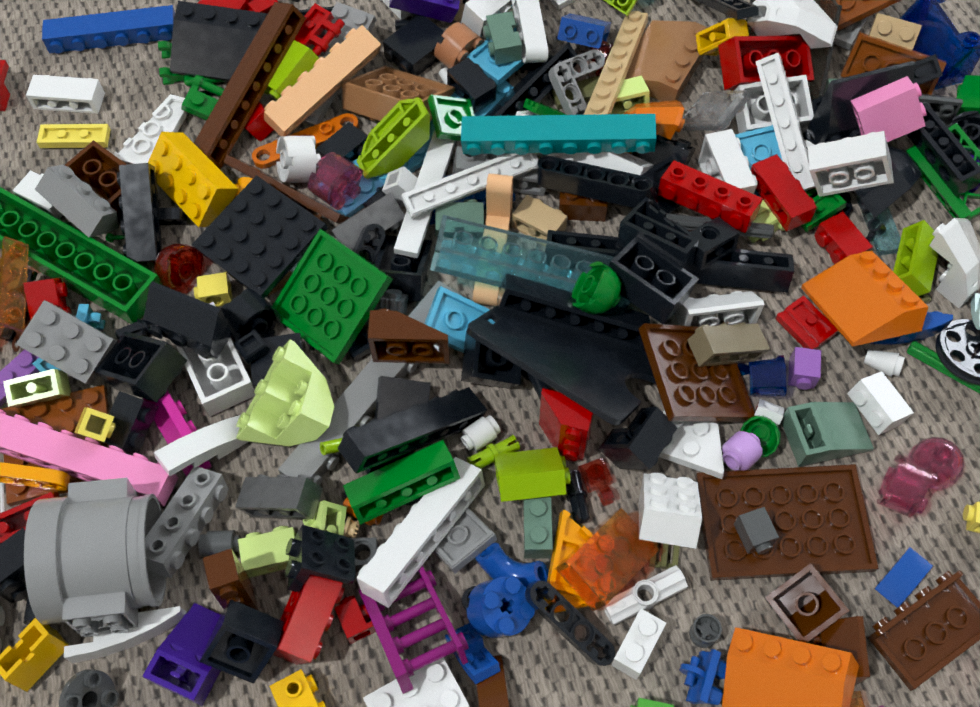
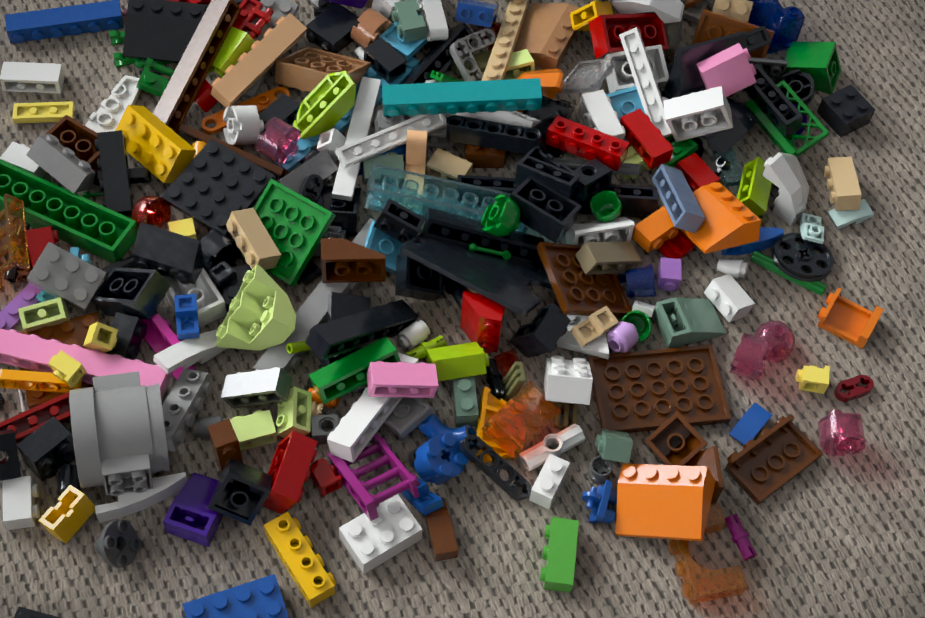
camera: 10 degrees left, 5 degrees down
(46, 465) = (67, 368): none -> light yellow brick
(202, 401) = (186, 316): none -> blue slope
(292, 304) = (253, 239): none -> tan brick
(320, 555) = (295, 422): black bracket -> none
(448, 114) = (369, 86): green plate -> none
(457, 500) = (402, 379): none -> bright pink brick
(470, 291) = (399, 222): none -> black brick
(599, 508) = (512, 381): none -> olive tile
(600, 335) = (506, 254): none -> green hinge
(706, 436) = (594, 326): none -> tan slope
(725, 602) = (614, 445): none -> sand green brick
(729, 278) = (606, 206): none -> green hair
(756, 531) = (635, 394): dark grey brick -> none
(790, 309) = (654, 230): none -> orange brick
(820, 272) = (678, 198): none -> sand blue brick

